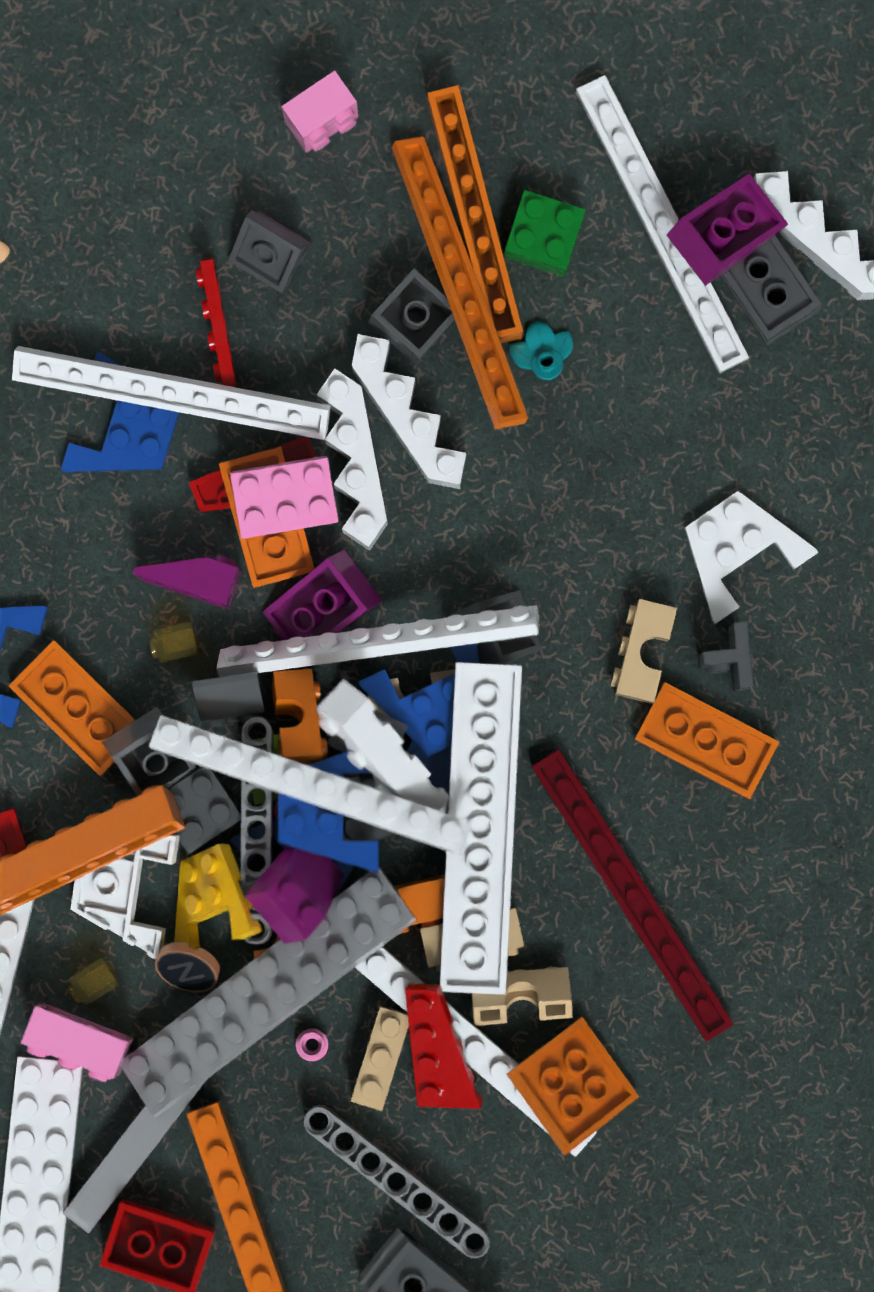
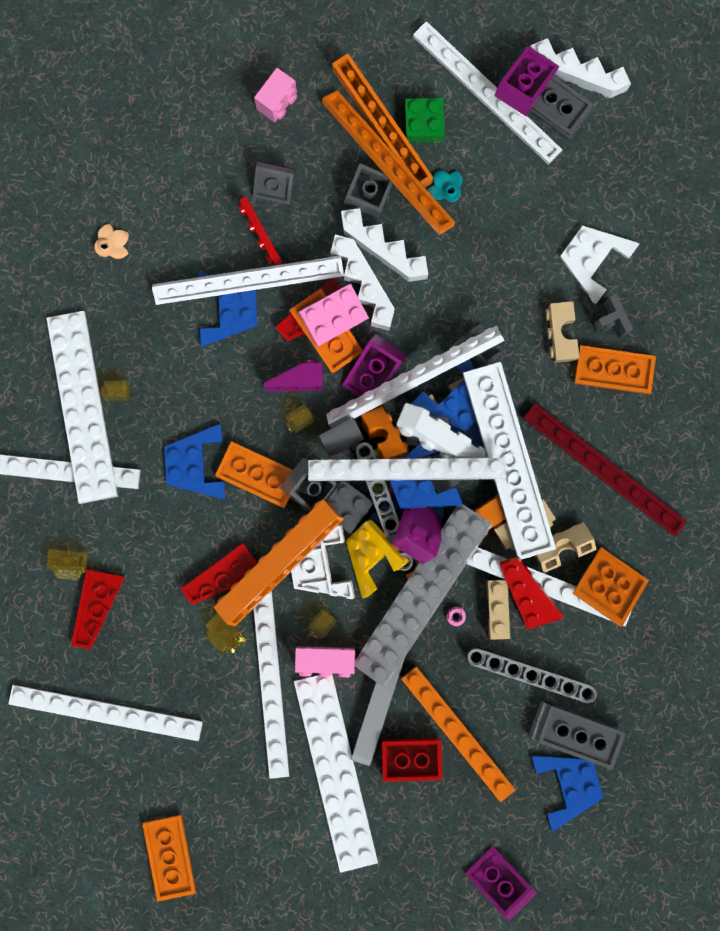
camera: 20 degrees left, 0 degrees up
(187, 968) = (372, 597): tile -> none

